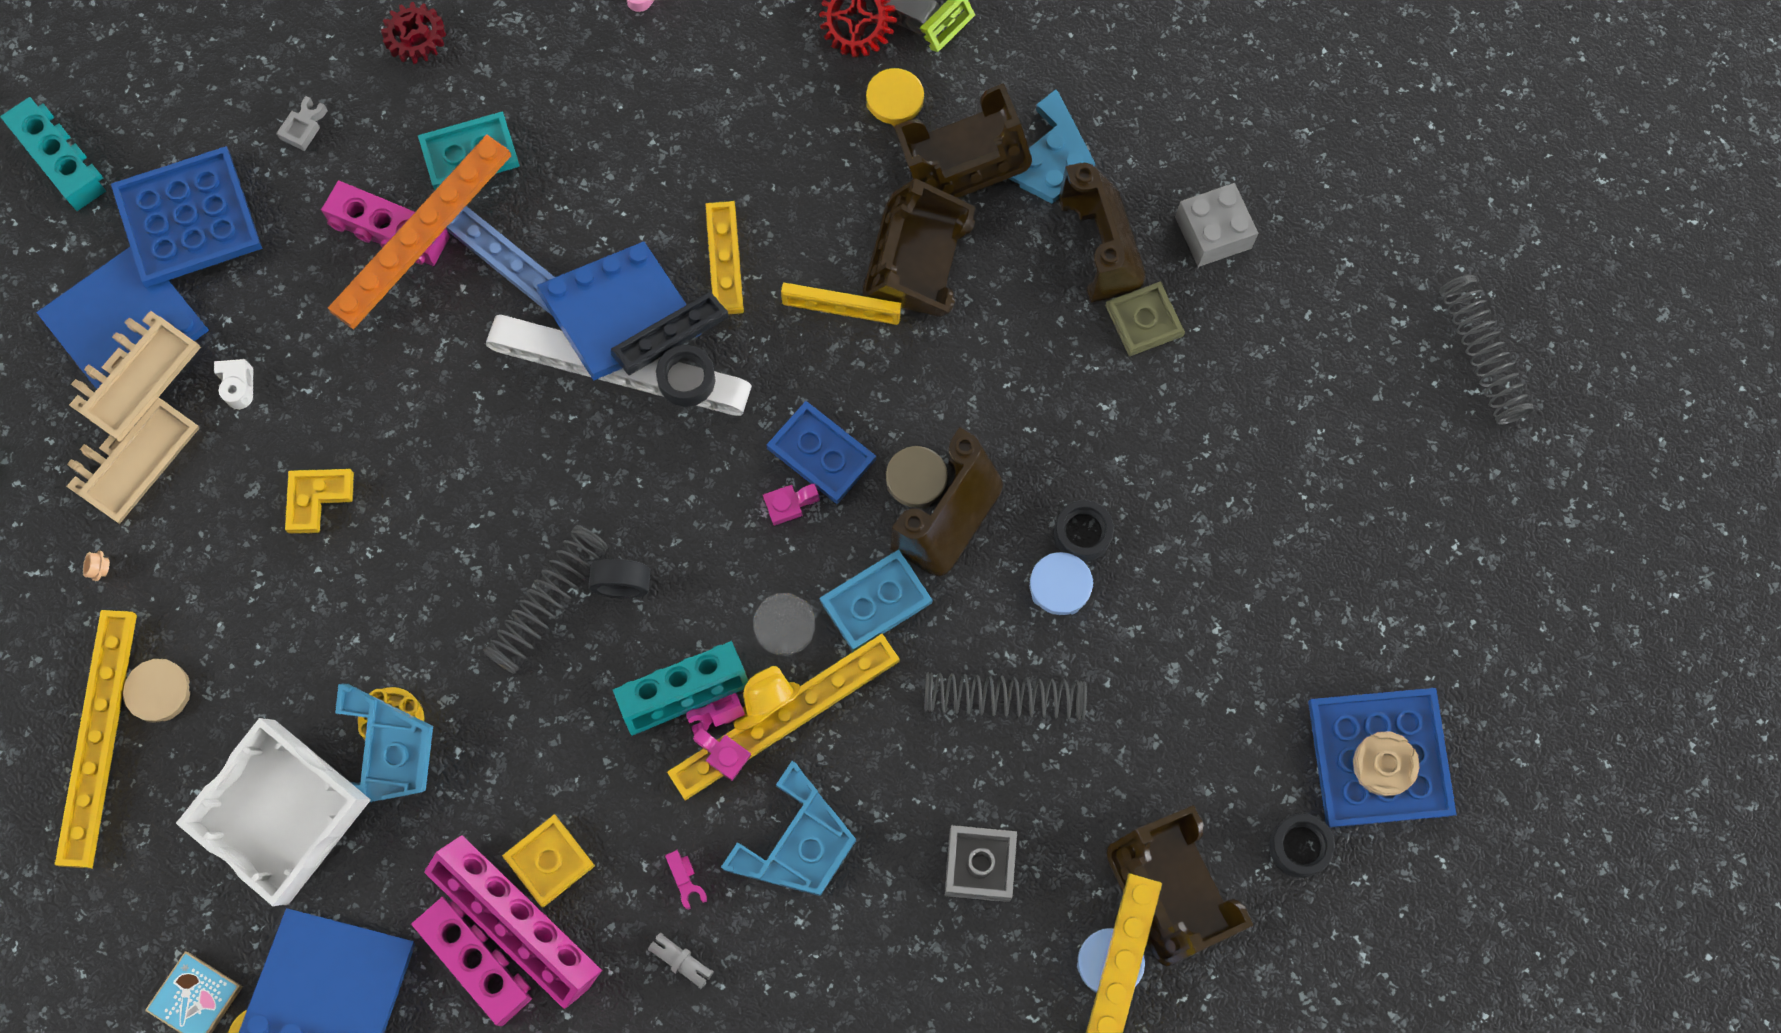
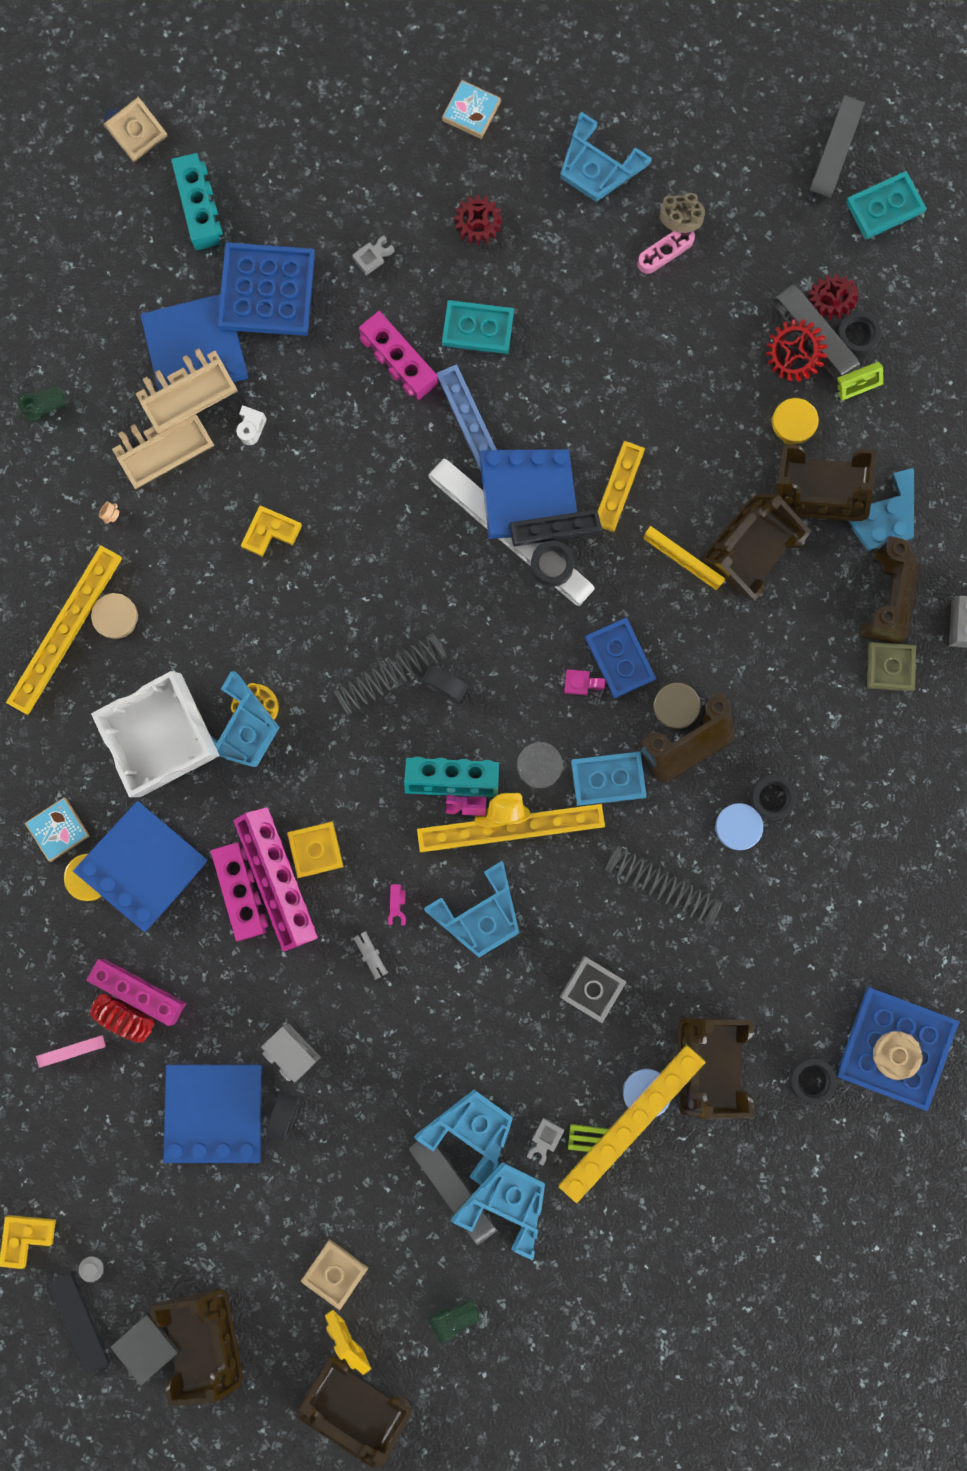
camera: 30 degrees right, 10 degrees up
(419, 232) = (419, 374): orange plate -> none
(725, 755) = (459, 837): dark pink plate -> none

